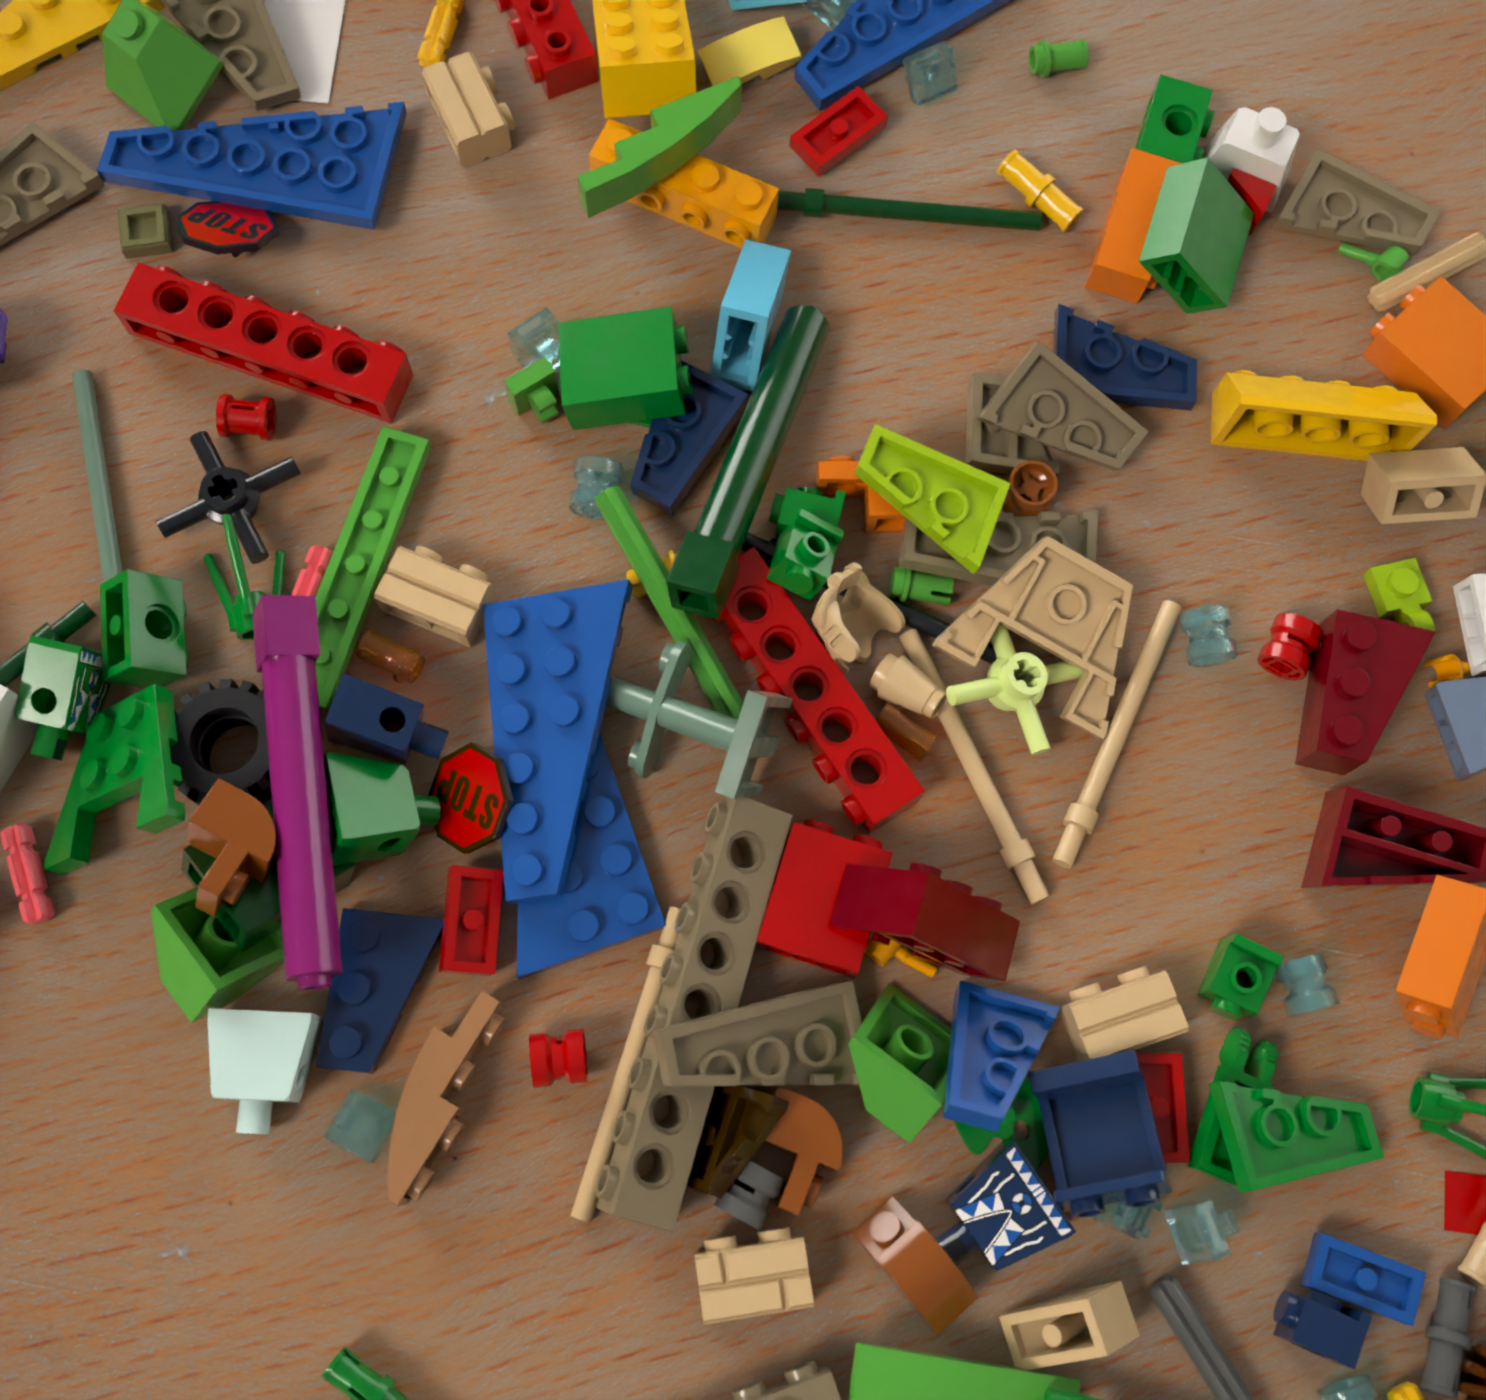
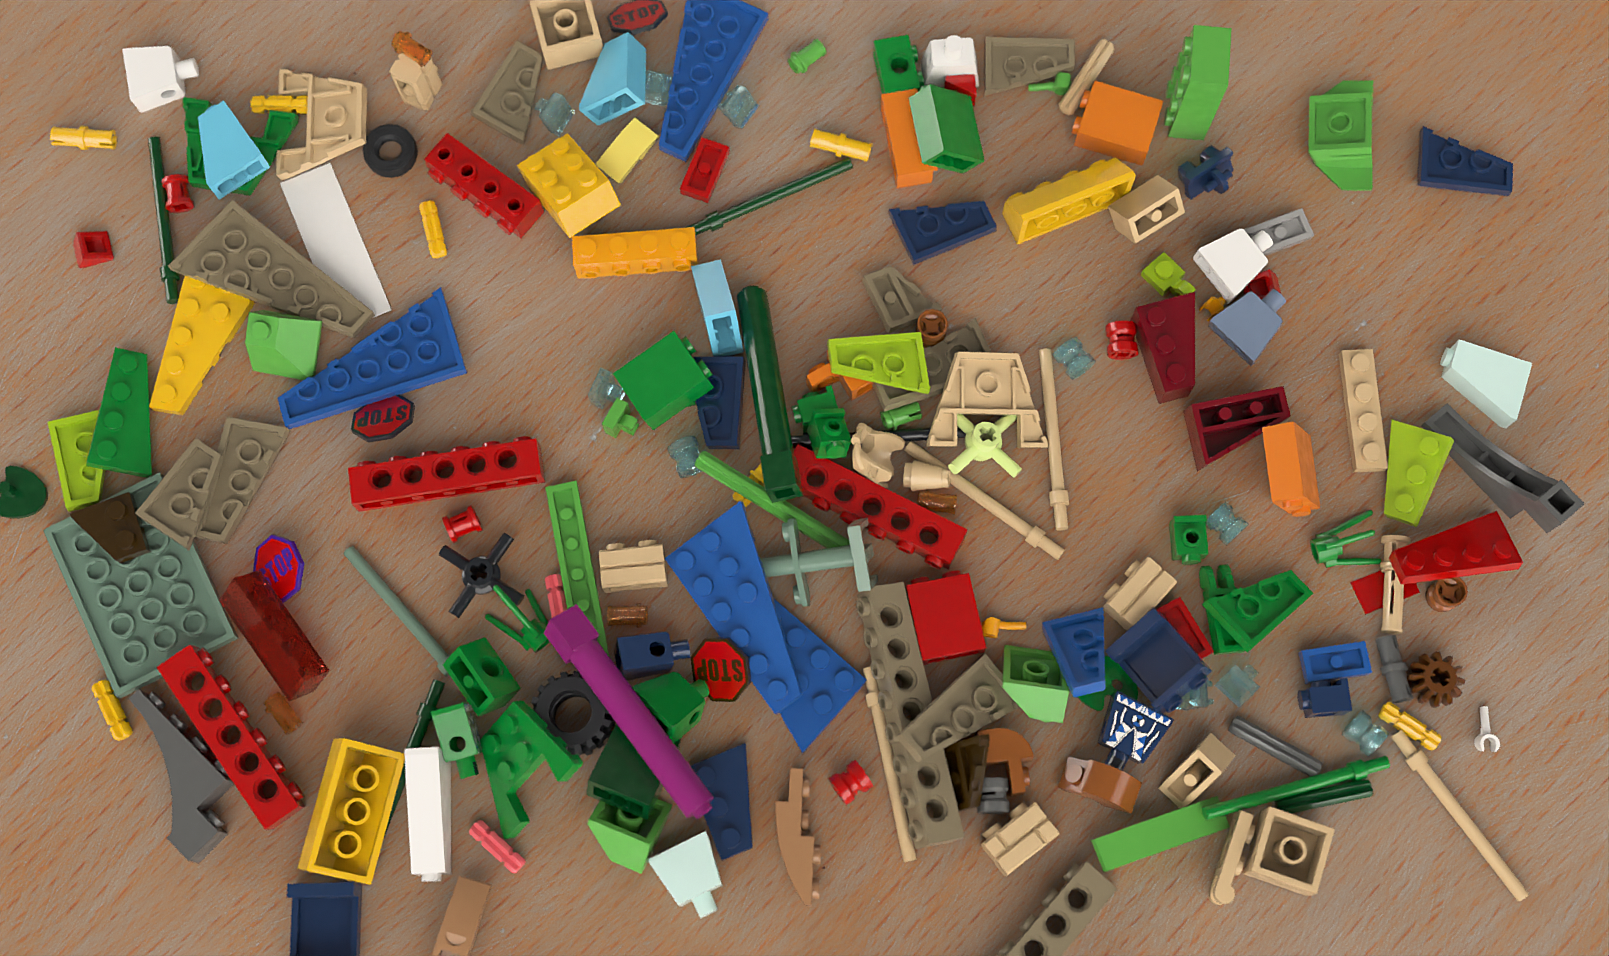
camera: 20 degrees left, 0 degrees up
(145, 231) = (332, 445): olive tile -> none
(239, 836) = (617, 756): dark orange brick -> none
(361, 1125) = (764, 877): clear light blue tile -> none
(468, 109) = (480, 271): tan brick -> none
(471, 920) = (759, 735): red plate -> none
(675, 137) = (620, 232): bright green slope -> none
(929, 916) = (1008, 596): dark red wedge -> none
(1063, 411) = (925, 272): dark tan wing -> none

